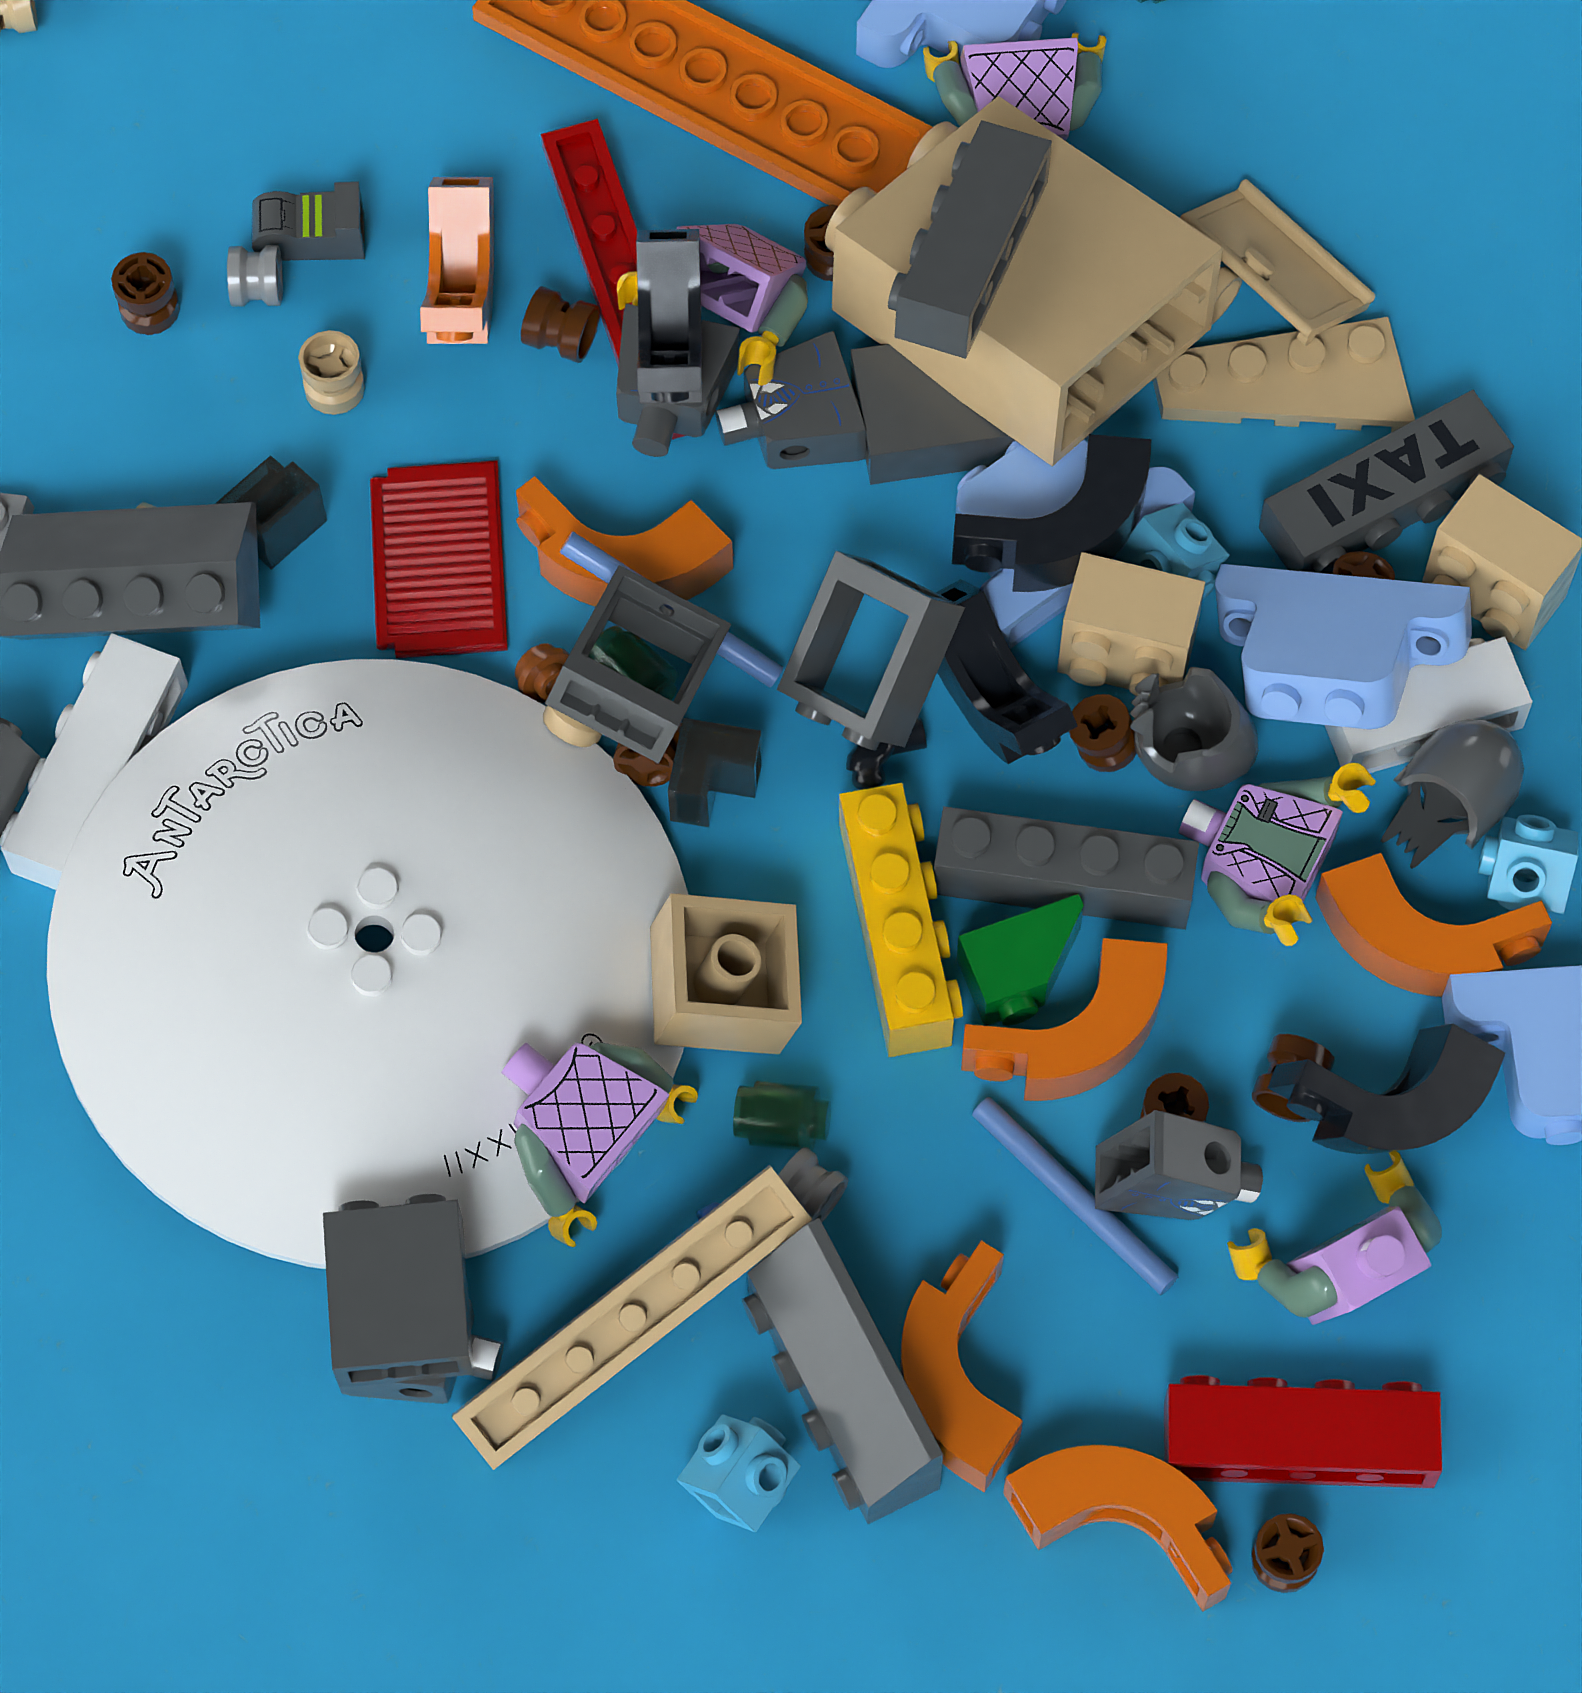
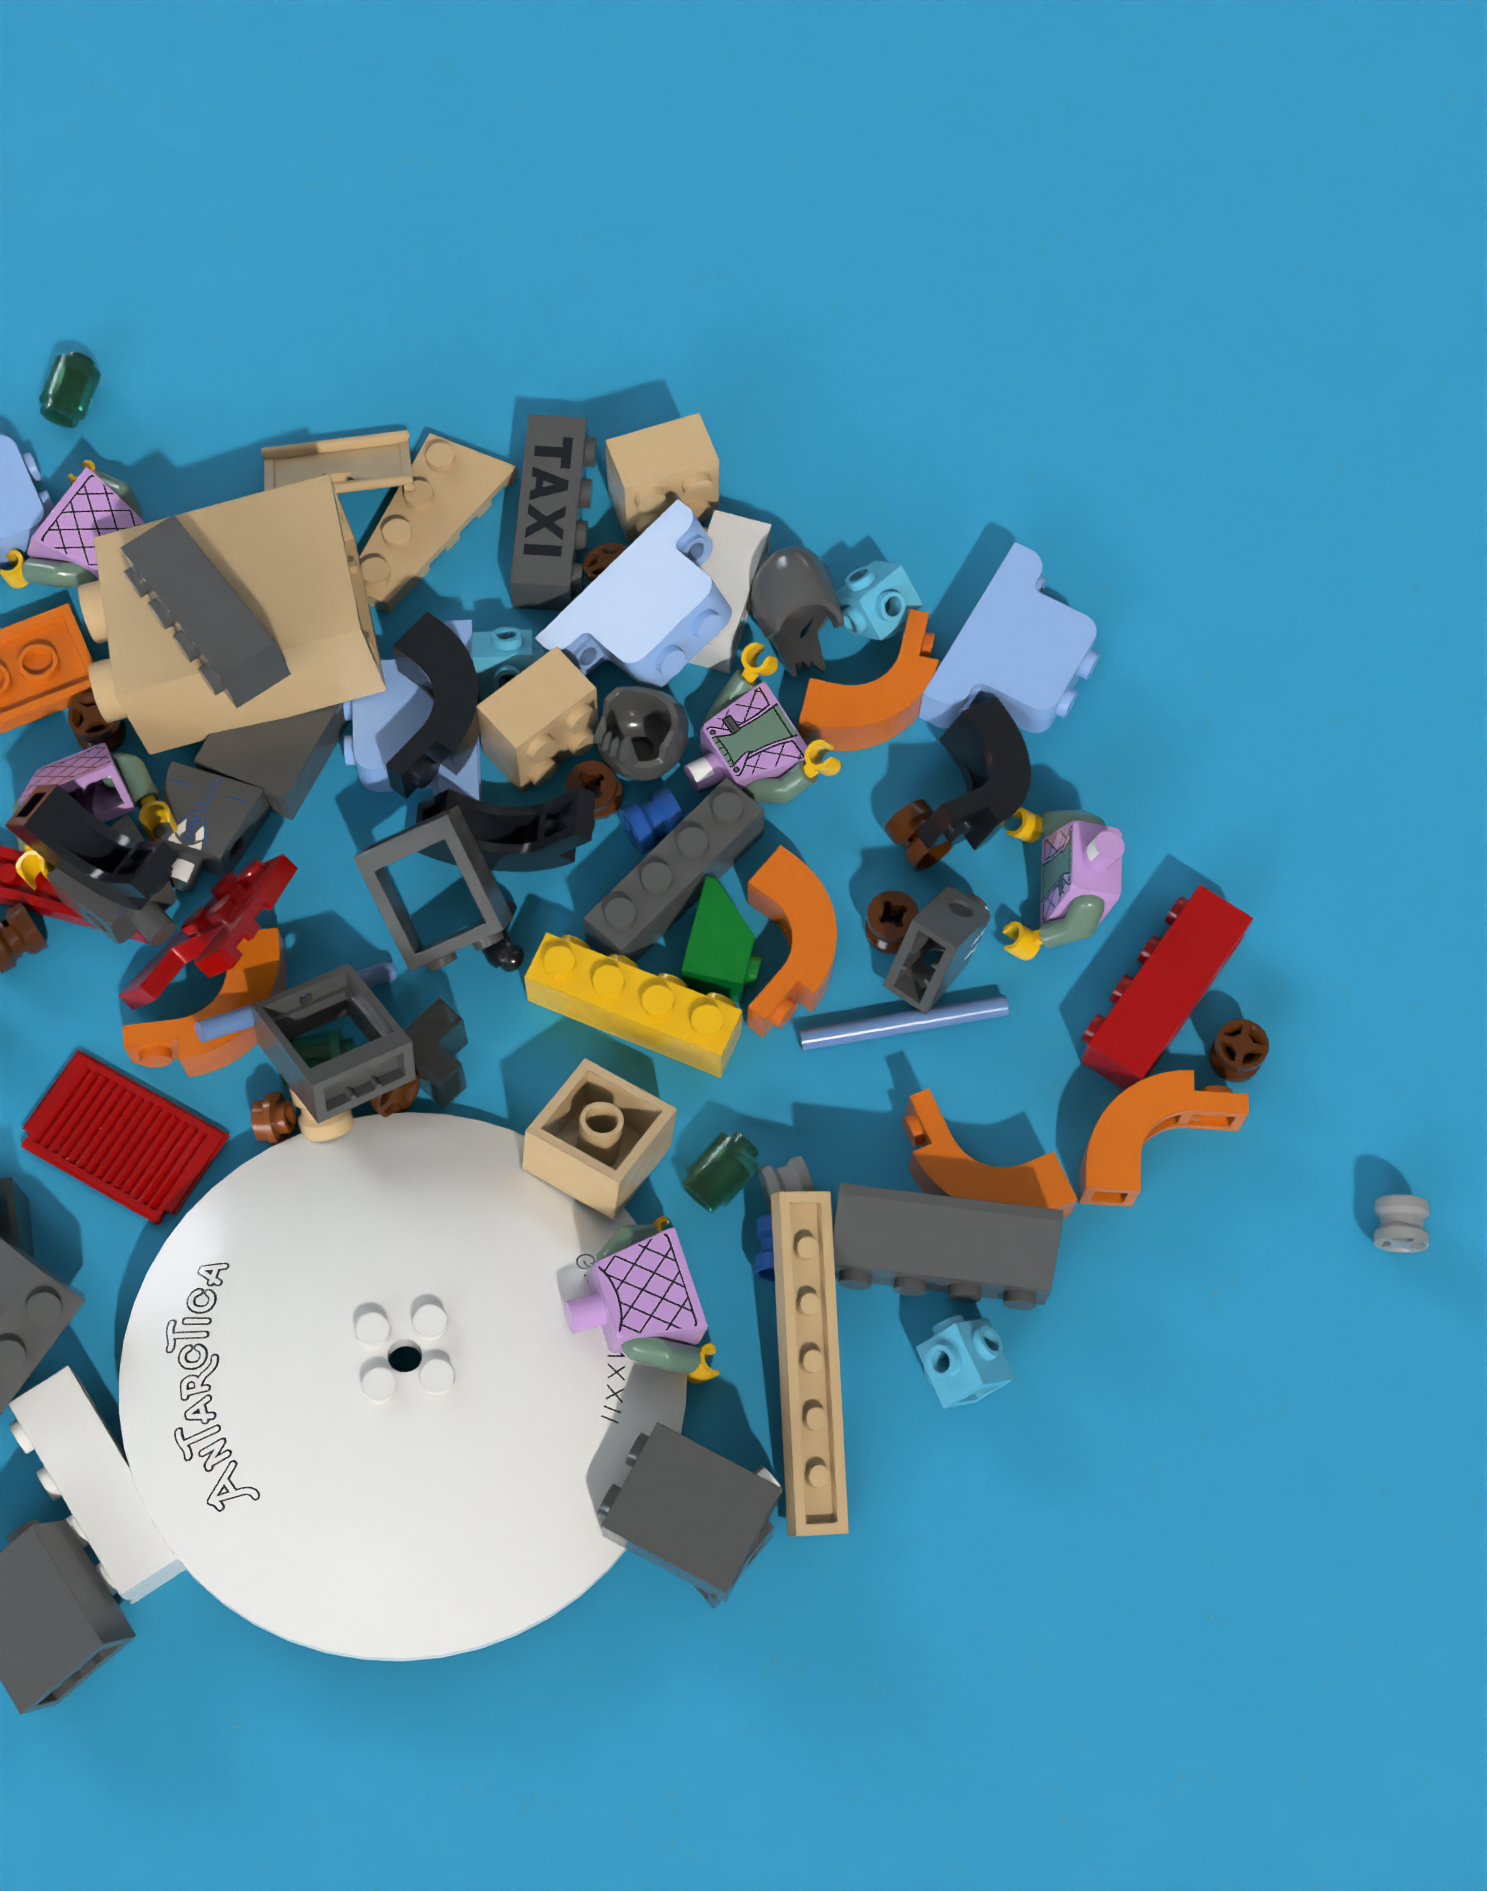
camera: 60 degrees left, 0 degrees up
(687, 485) = (215, 928): none -> red wing
(1110, 805) = (650, 820): none -> blue wheel

